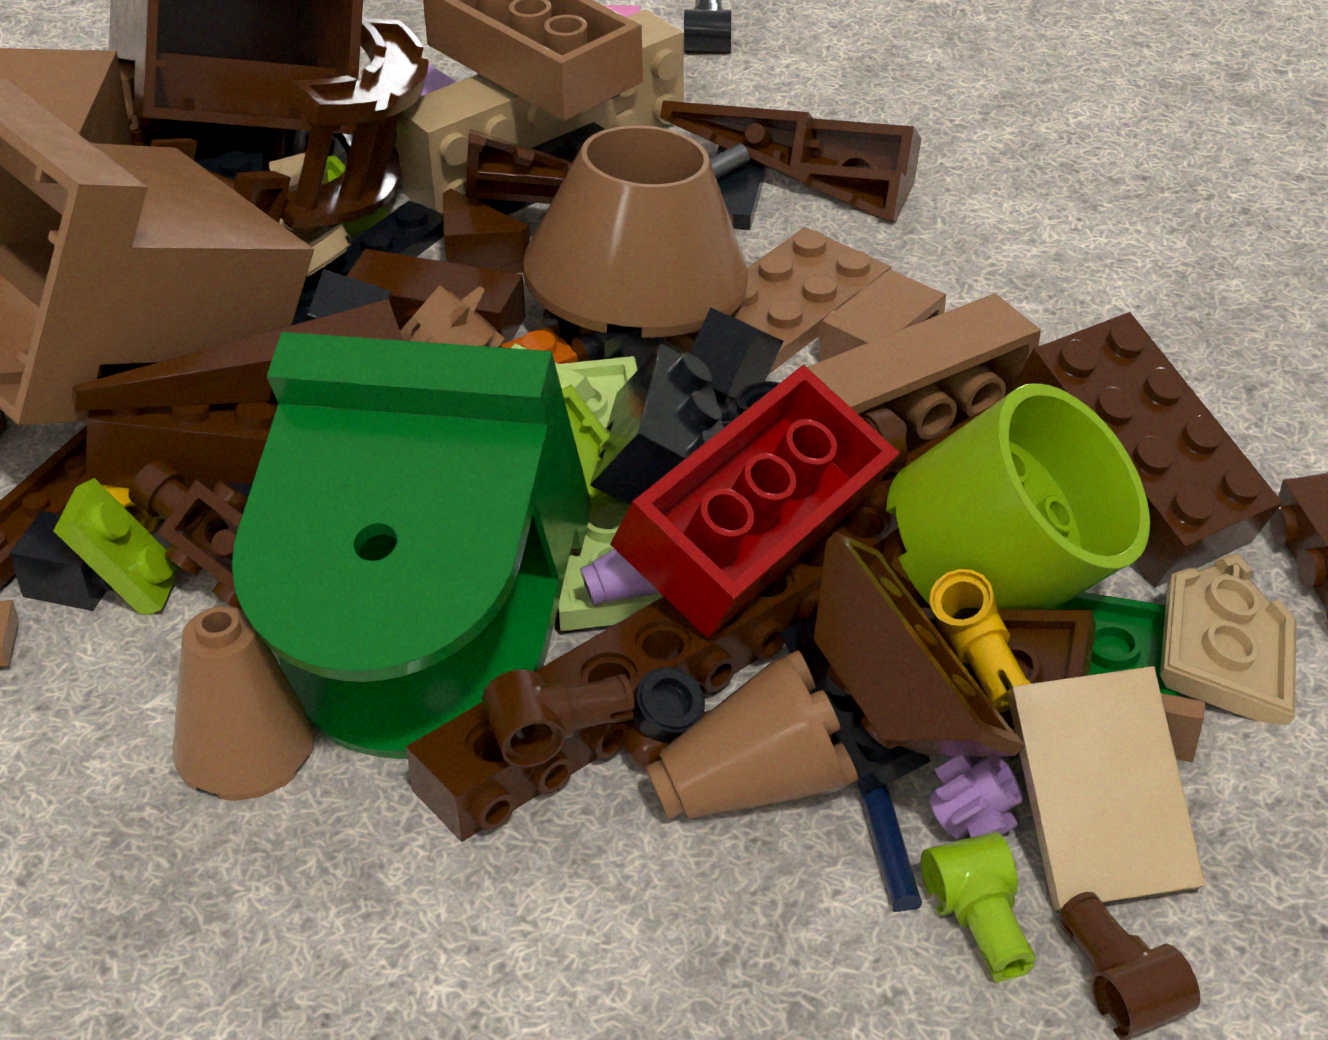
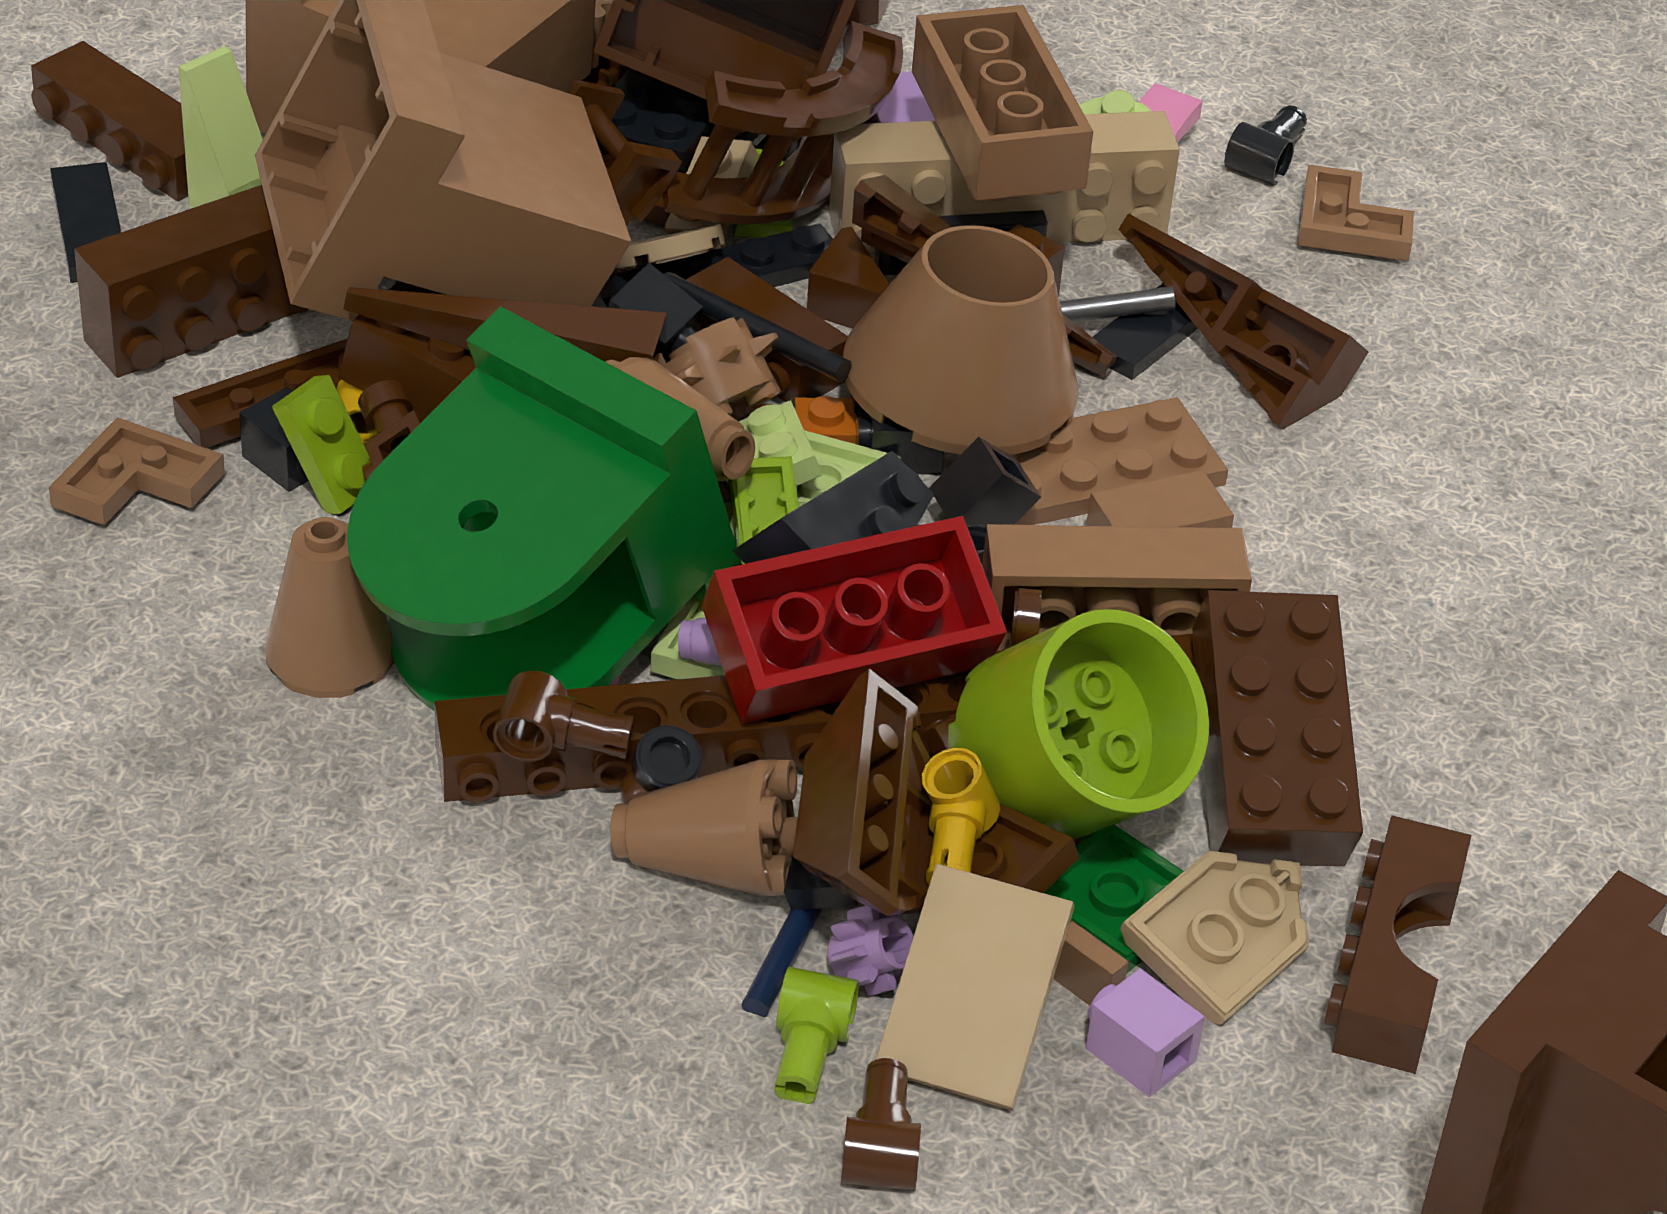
camera: 25 degrees right, 0 degrees up
(493, 297) = (788, 342): none -> black bar
(804, 59) = (1339, 222): none -> medium nougat plate
(1253, 759) = (1144, 1031): none -> lavender brick

